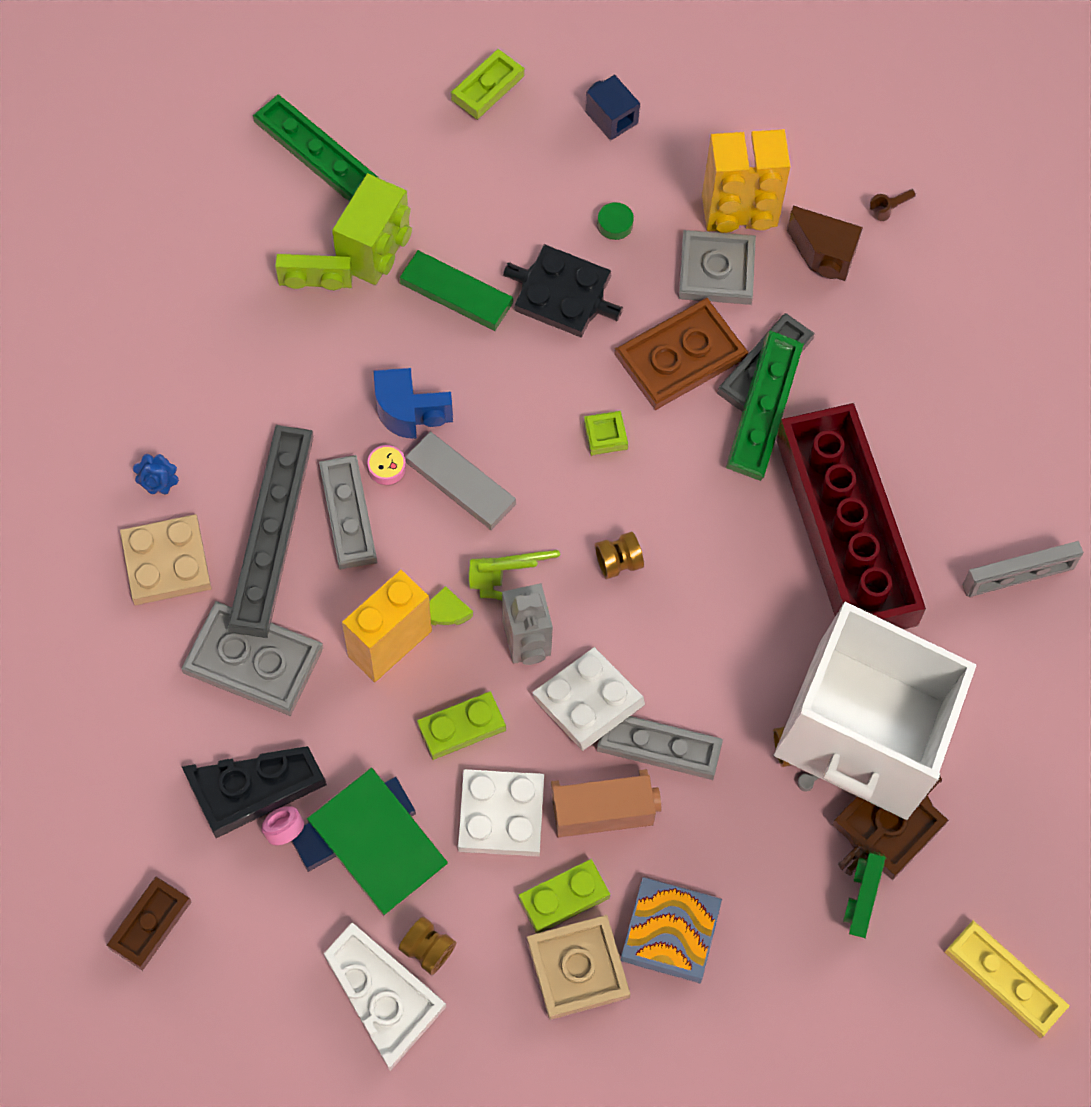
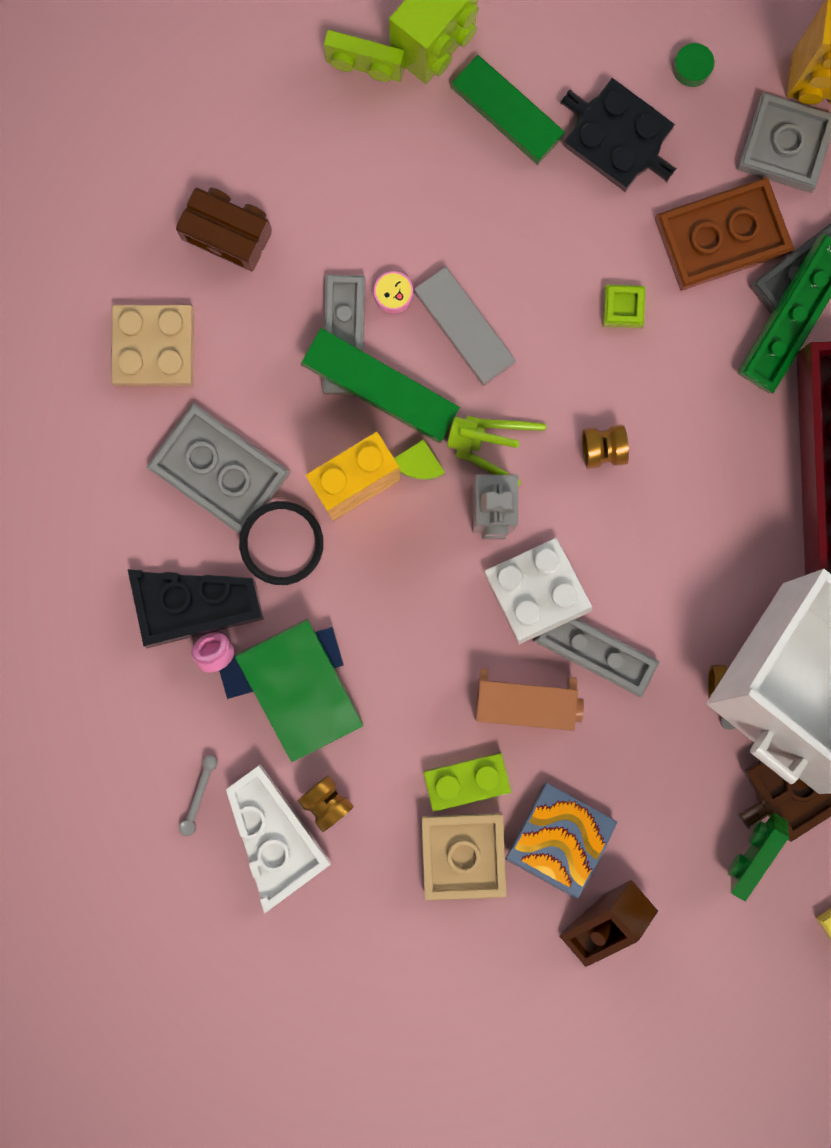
camera: 15 degrees right, 20 degrees up
(149, 923) = (68, 718): reddish brown plate -> none
(155, 474) = (159, 252): blue plant -> none
(215, 440) = (224, 227): none -> reddish brown brick
(270, 532) = (262, 339): dark grey tile -> none
(291, 1006) = (188, 826): none -> light grey hinge
(328, 746) = (243, 543): none -> black tyre
(393, 546) = (380, 385): none -> green tile
(402, 410) = (422, 236): blue brick -> none
(461, 725) = (407, 587): lime plate -> none
(501, 813) = (426, 685): white plate -> none
(739, 999) = (610, 924): none -> reddish brown slope

